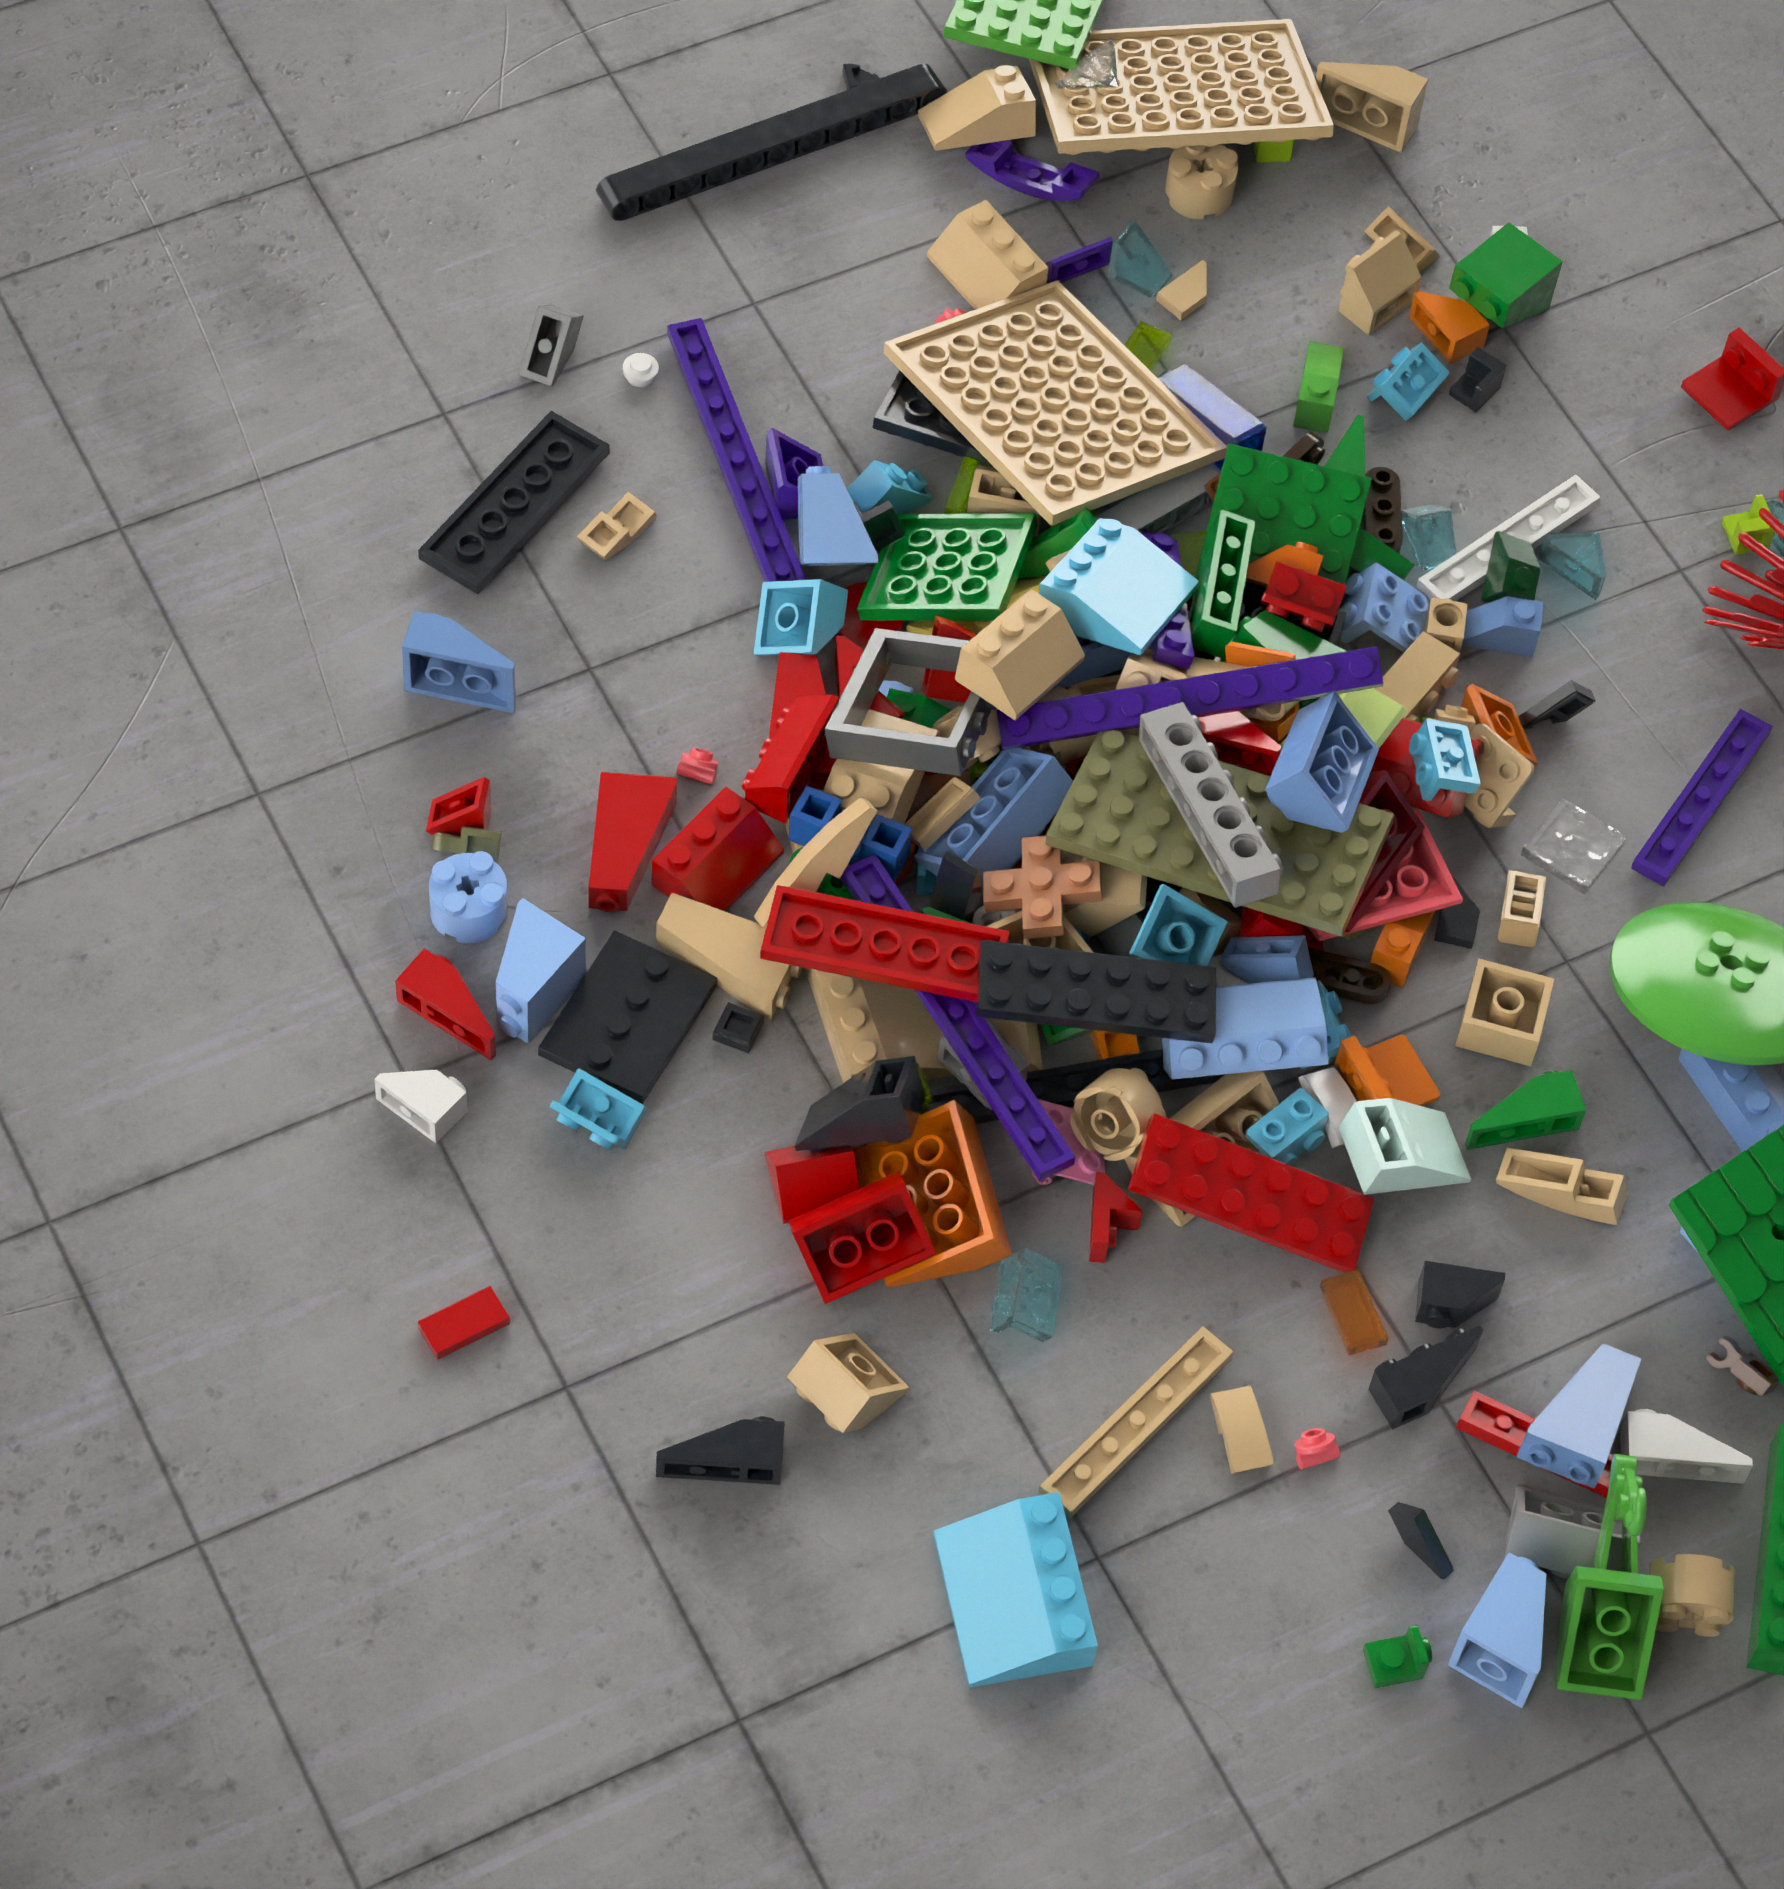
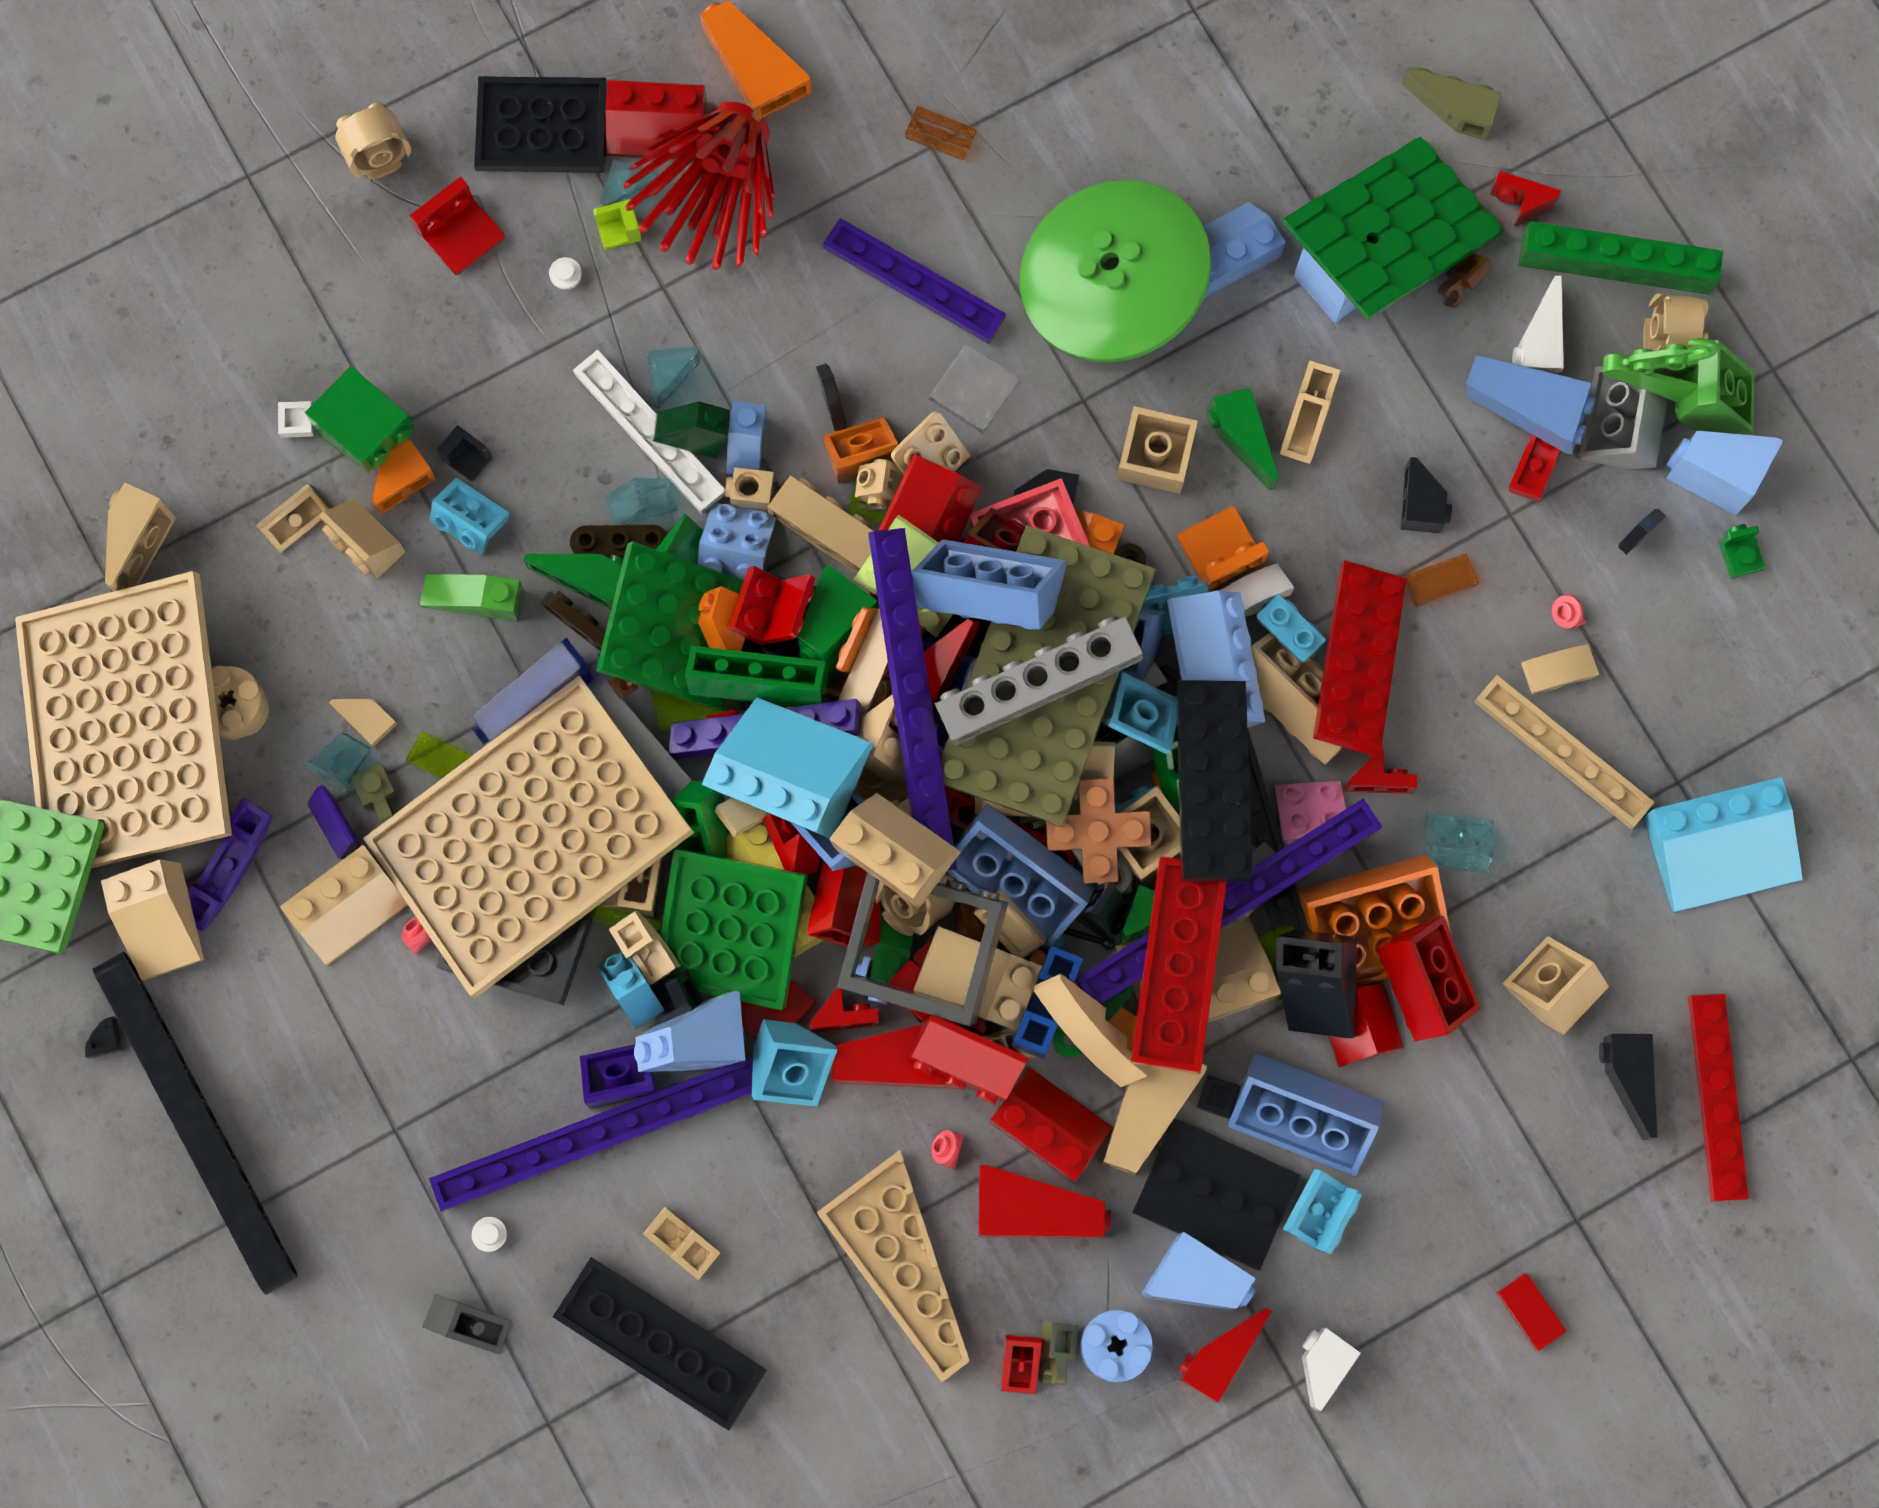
camera: 90 degrees left, 20 degrees up
(455, 664) = (864, 1389): medium blue slope -> none
(595, 705) = (889, 1244): none -> tan wing
(702, 1554) = (1718, 1097): none -> red plate
(713, 1105) = (1306, 1114): none -> medium blue slope
(937, 493) = (645, 946): none -> tan slope
(1094, 70) = (110, 804): clear slope -> none
(1109, 296) = (375, 790): none -> olive plate
(1115, 1112) = (1297, 767): tan brick -> none
(1401, 1146) = (1299, 535): light aqua slope -> none
(1415, 1383) = (1504, 527): black slope -> none
(1443, 758) = (945, 484): medium azure bracket -> none
(1521, 909) = (1048, 447): tan slope -> none
(1688, 479) = (565, 273): none -> white plate

